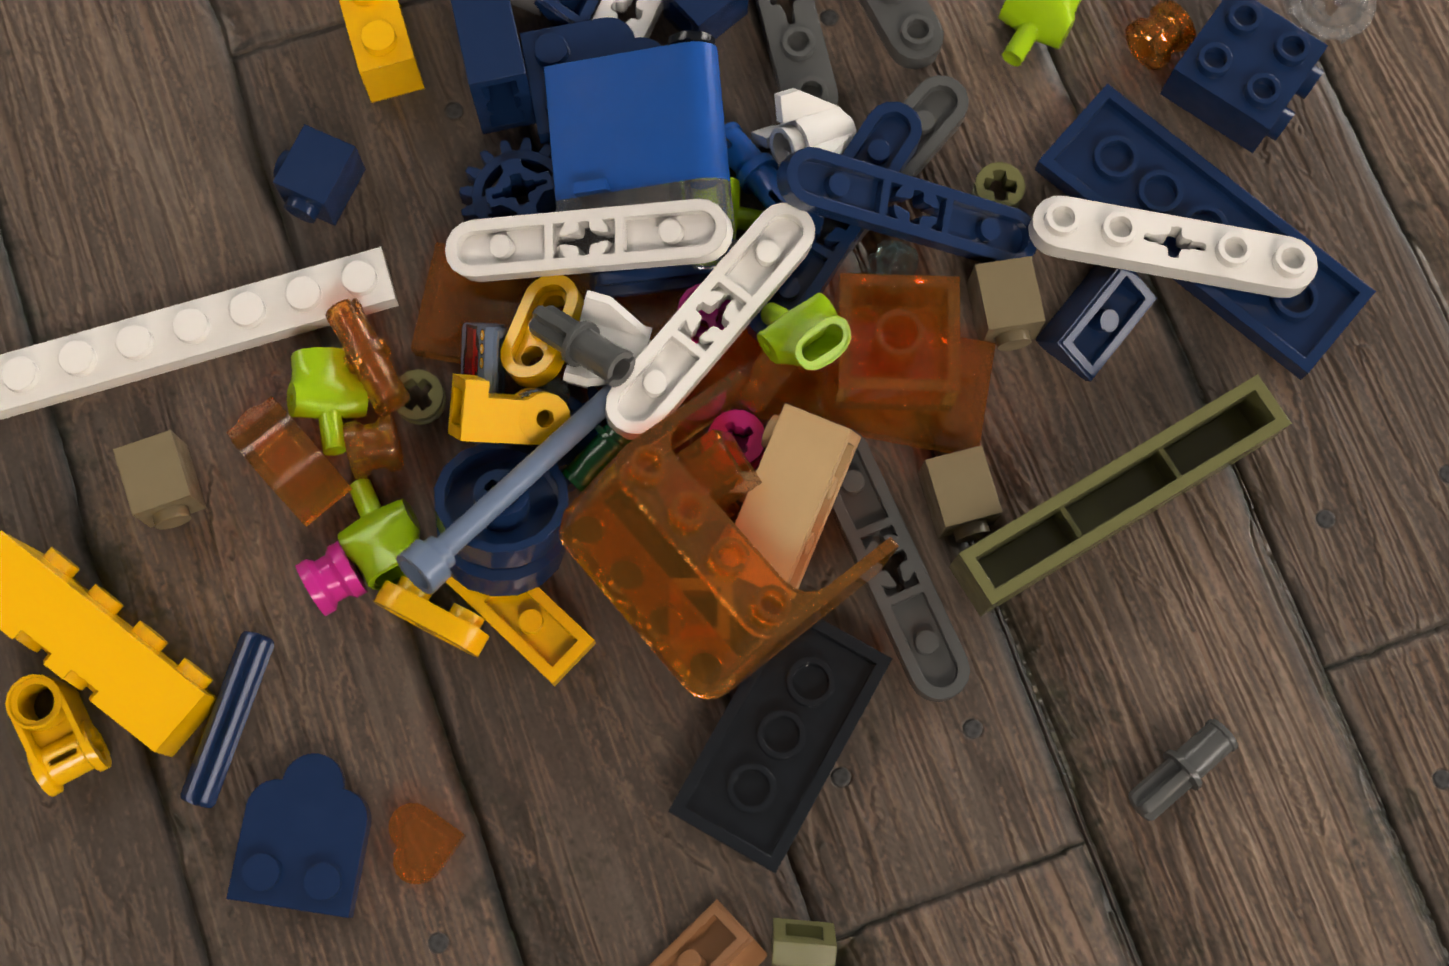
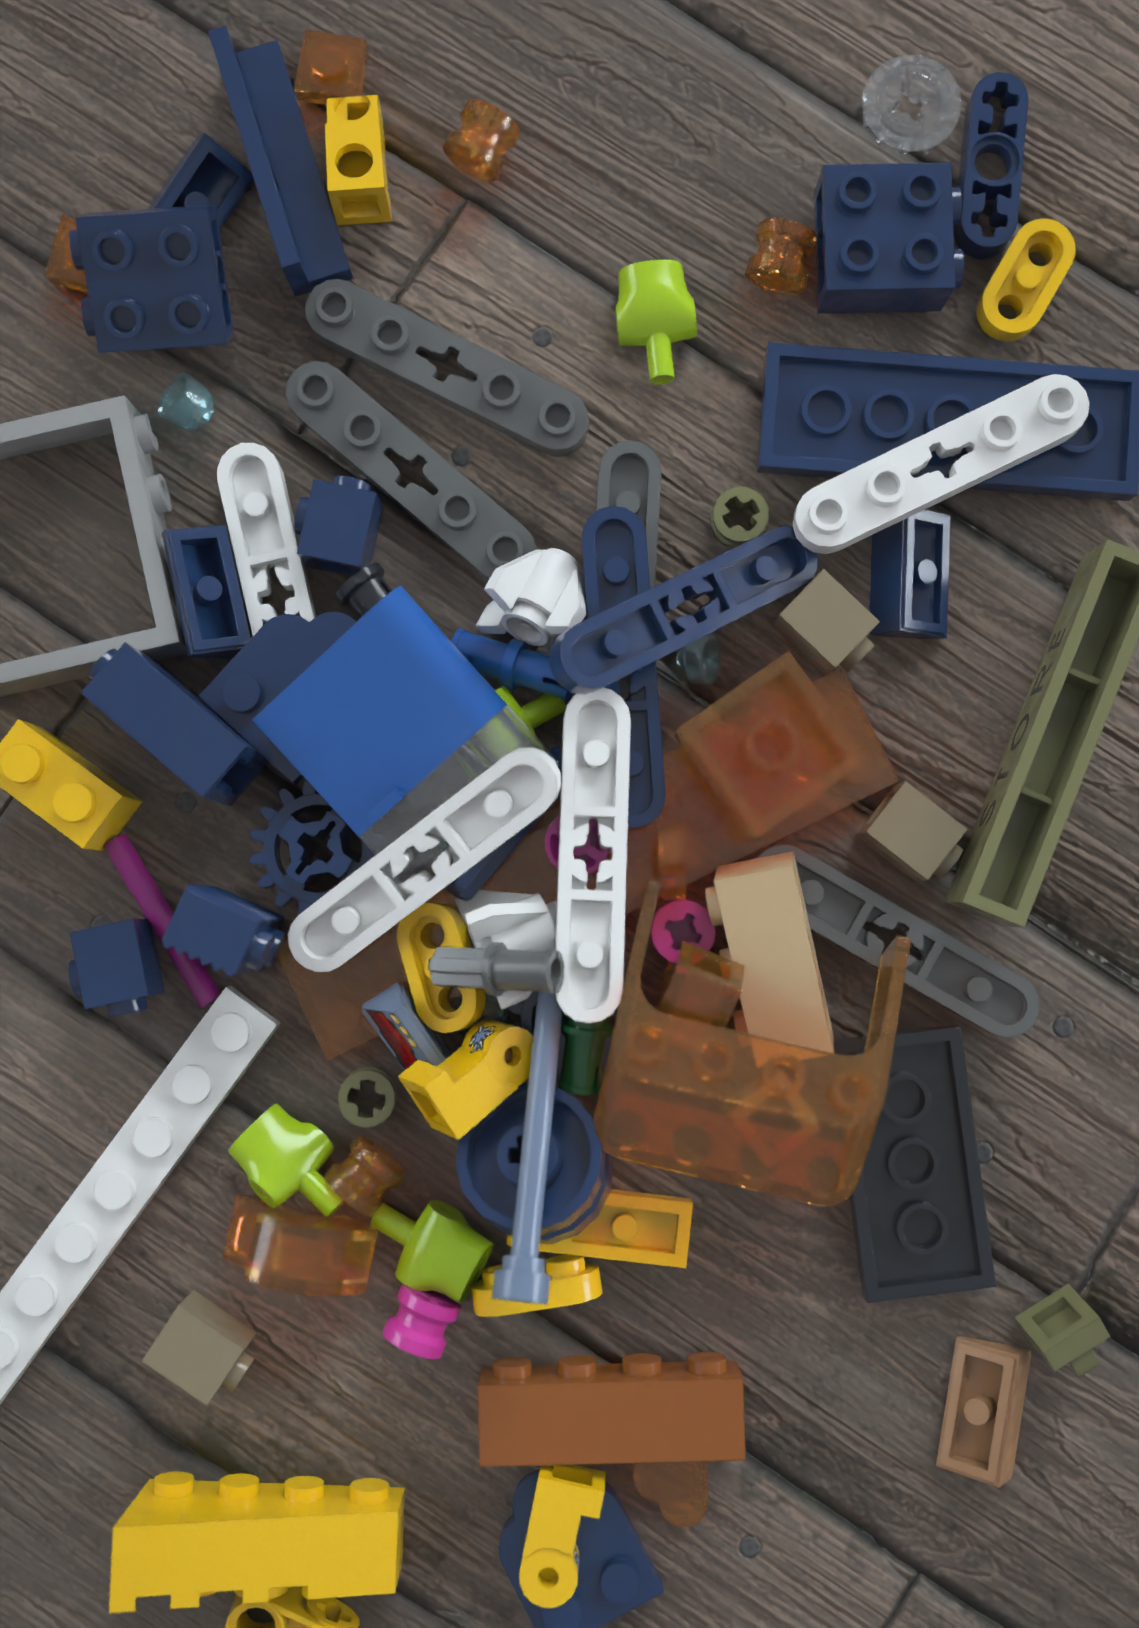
camera: 30 degrees left, 10 degrees up
(227, 719) = (426, 1504): dark blue axle -> none
(291, 807) = (550, 1547): none -> yellow leg
(367, 356) = (297, 1101): clear orange pin -> none
(373, 173) = (159, 916): none -> magenta bar
(411, 197) = (224, 931): none -> dark blue brick
(414, 749) = (611, 1411): none -> dark orange brick
(805, 335) = (691, 812): lime piece -> none
(1327, 174) = (1022, 283): none -> yellow plate
(1368, 60) = (1006, 143): none -> dark blue beam

